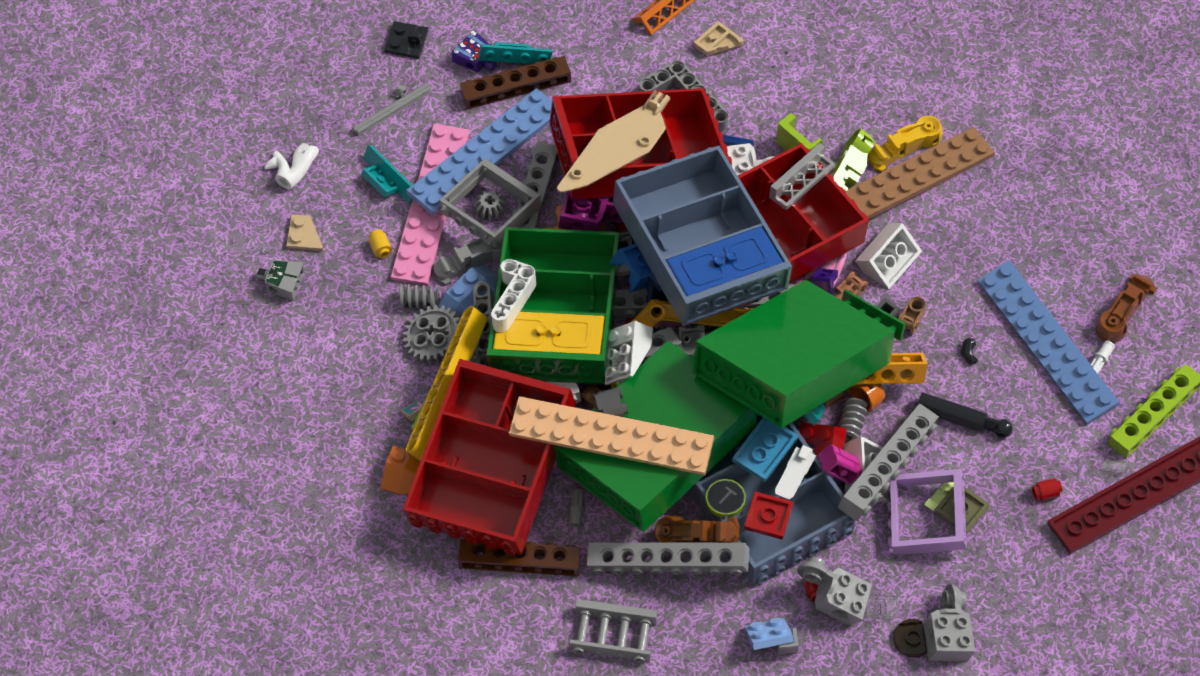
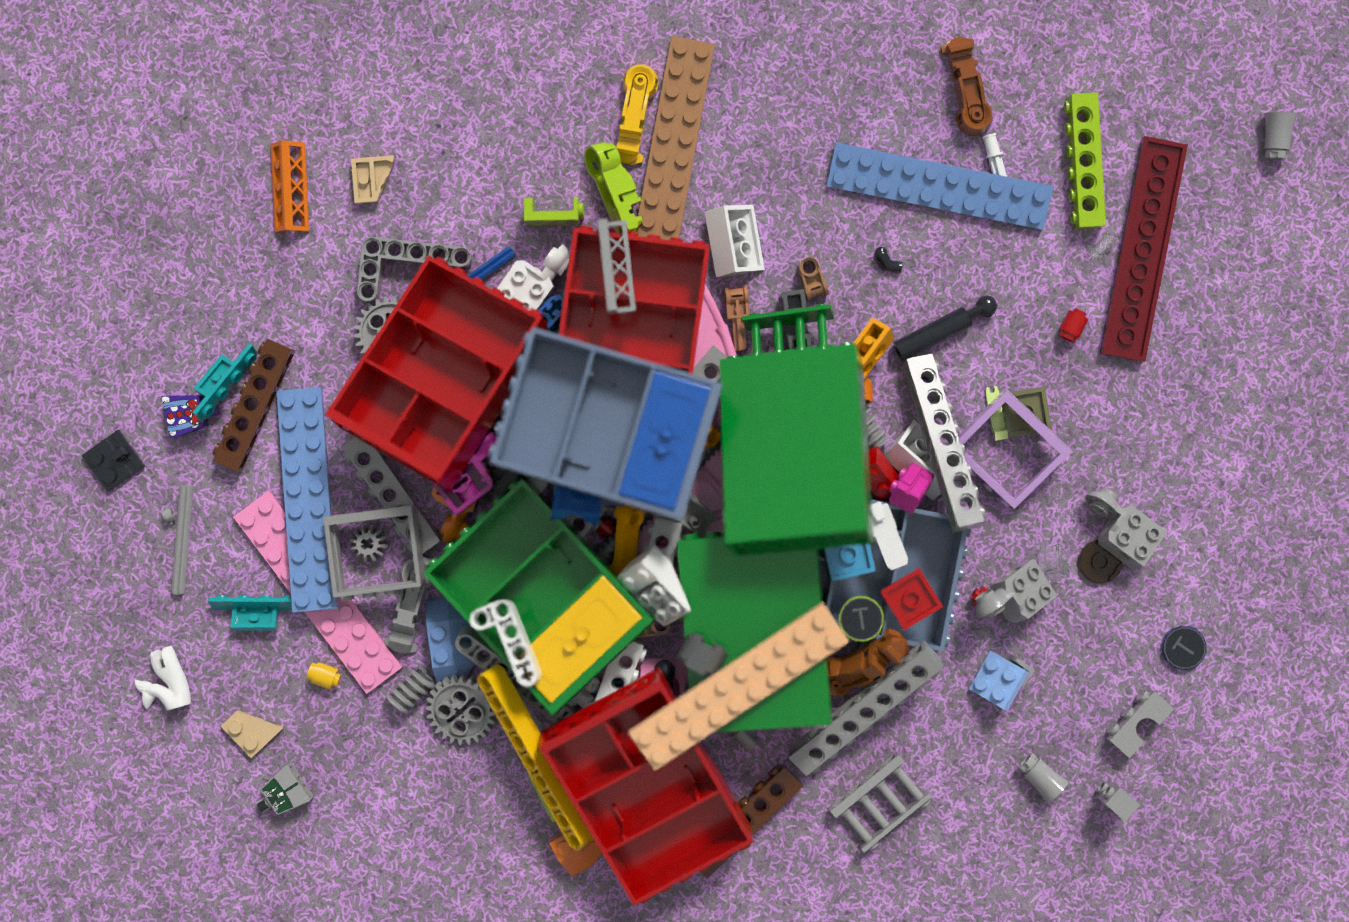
camera: 50 degrees left, 30 degrees up
(412, 410) = (523, 788): tile -> none
(618, 144) = (440, 410): tan wing -> none
(825, 279) = (714, 323): dark purple slope -> none

